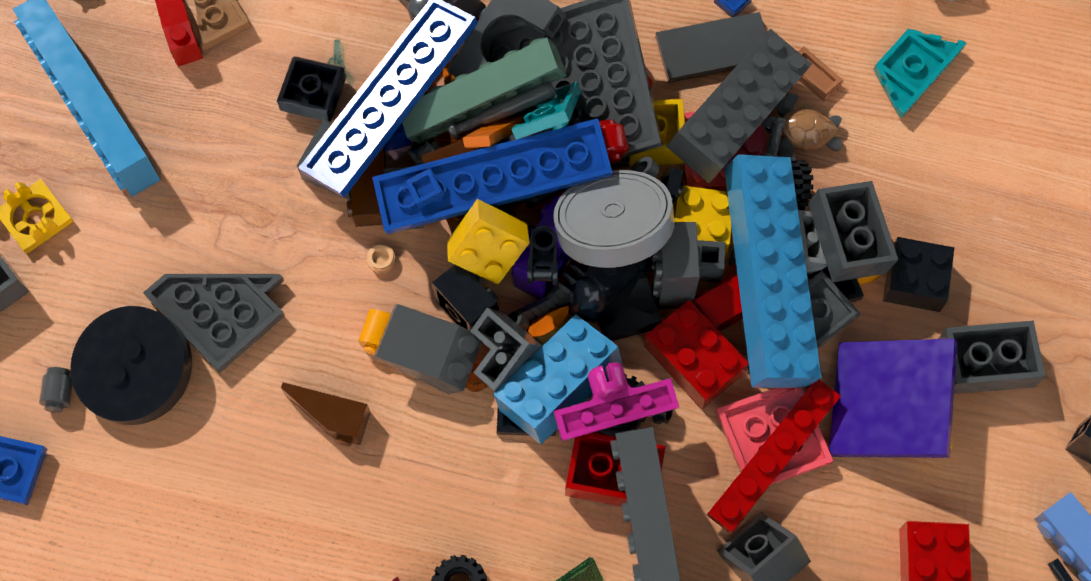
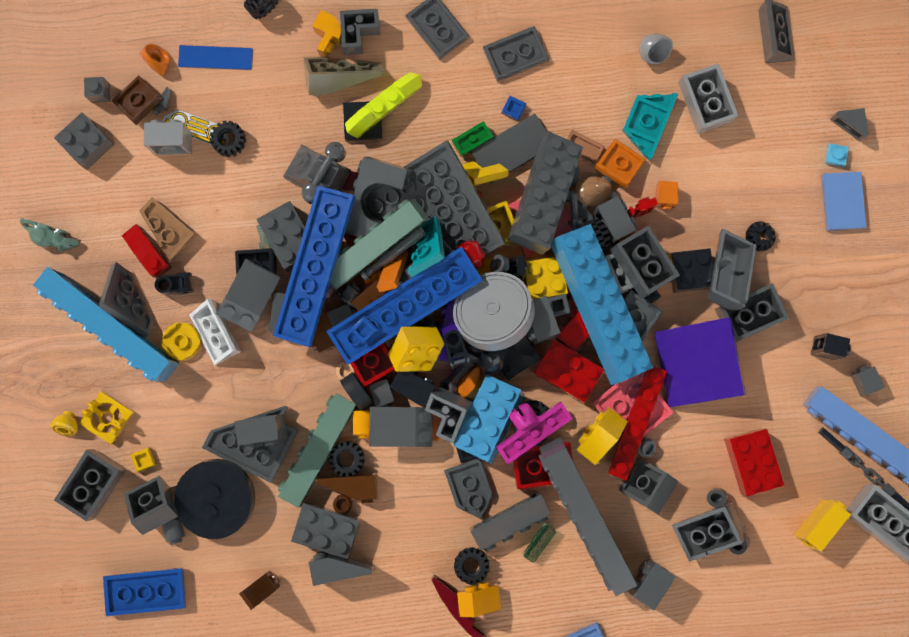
camera: 20 degrees left, 15 degrees up
(39, 342) = (150, 505): none -> dark grey brick
(57, 286) = (143, 459): none -> yellow tile
(122, 73) = (124, 301): none -> dark grey plate
(140, 507) = (260, 589): none -> reddish brown slope
(175, 151) = (181, 341): none -> yellow tile
(201, 78) = (178, 284): none -> black piece
(224, 151) = (214, 332): none -> white slope
(231, 282) = (262, 429): none -> dark grey brick
(251, 513) = (332, 568): none -> dark grey slope
(268, 460) = (326, 530): none -> dark grey brick
(287, 112) = (248, 295): none -> dark grey slope
(299, 348) = (317, 451): none -> sand green brick
(306, 435) = (342, 504): none -> reddish brown plate
(330, 358) = (358, 458): none -> black tyre
(363, 48) = (284, 233): none -> dark grey brick
(384, 282) = (356, 391): none -> black tyre
(420, 254) = (373, 365): none -> red brick
(420, 296) = (382, 394): none -> dark grey brick
(498, 472) = (470, 487): none -> dark grey tile
(539, 535) = (509, 521): none -> dark grey slope
(657, 58) = (482, 175): none -> yellow tile
(662, 17) = (472, 139): none -> green plate
(714, 451) = (601, 435): none -> yellow brick
(777, 499) = (647, 447): none -> dark grey plate
(828, 162) = (616, 219): none -> dark grey brick
(858, 107) = (620, 163): none -> orange plate
(871, 167) = (643, 207): none -> red plate
(912, 165) = (667, 195): none -> orange brick
(976, 286) = (732, 271): none -> dark grey container
(1006, 60) = (708, 98): none -> light grey brick
(1034, 274) = (758, 227): none -> black gear

